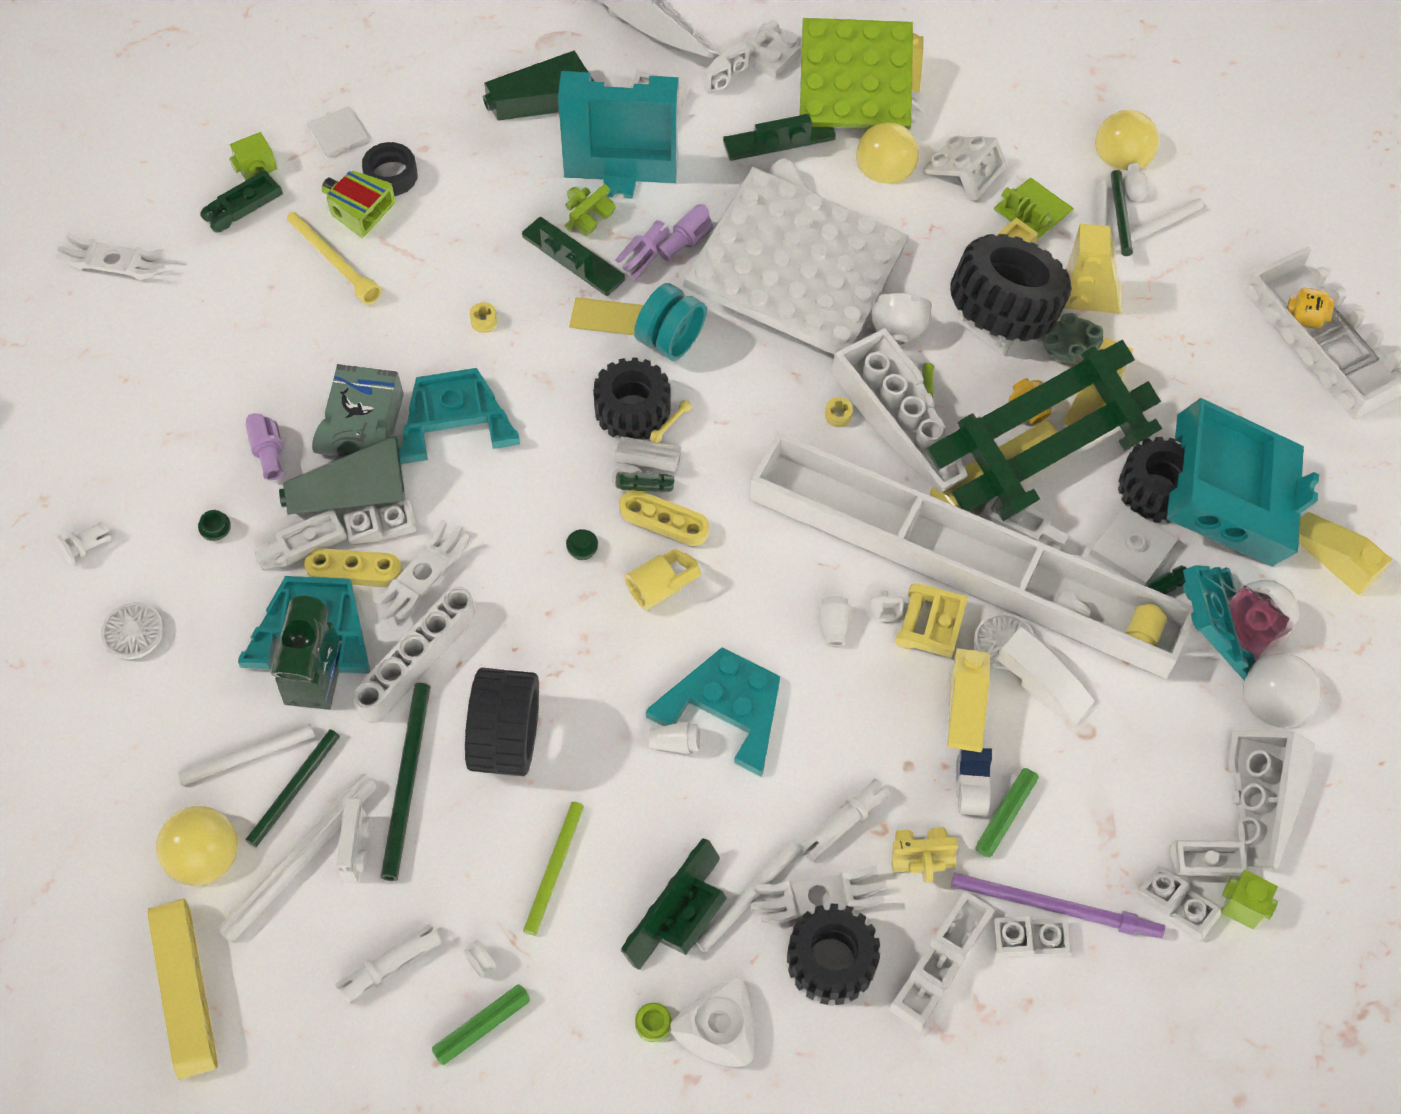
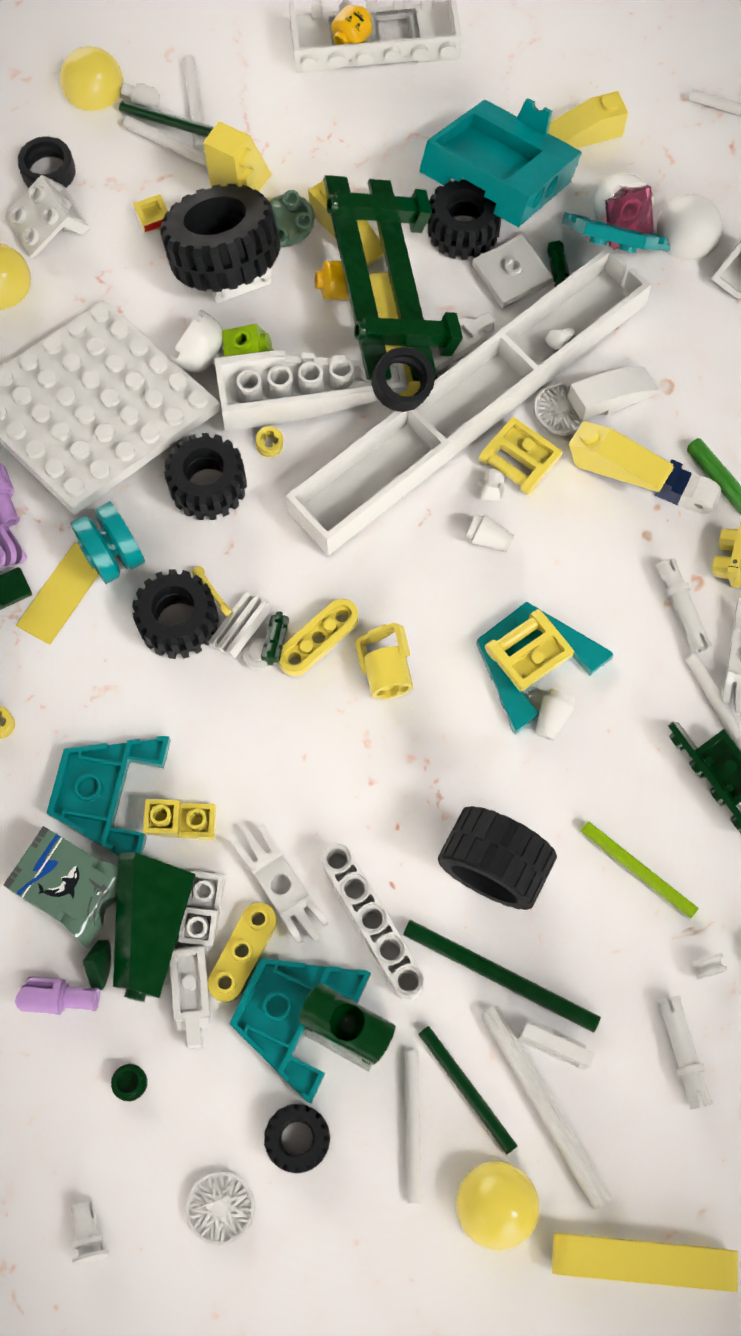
camera: 65 degrees left, 10 degrees up
(201, 648) = (275, 1129): none -> black tyre
(302, 462) = (98, 964): none -> dark green tile
(450, 476) = (179, 819): none -> light yellow slope
(582, 544) = (313, 722): dark green plate -> none
(719, 695) = (536, 657): none -> light yellow plate
(779, 353) = (199, 455): none -> black tyre
(921, 350) = (245, 340): none -> lime brick
(937, 450) = (421, 366): none -> black tyre
(1025, 129) = (46, 147): none -> black tyre
(1033, 206) = (123, 185): lime hinge -> none
(1147, 623) = (601, 293): light yellow brick -> none

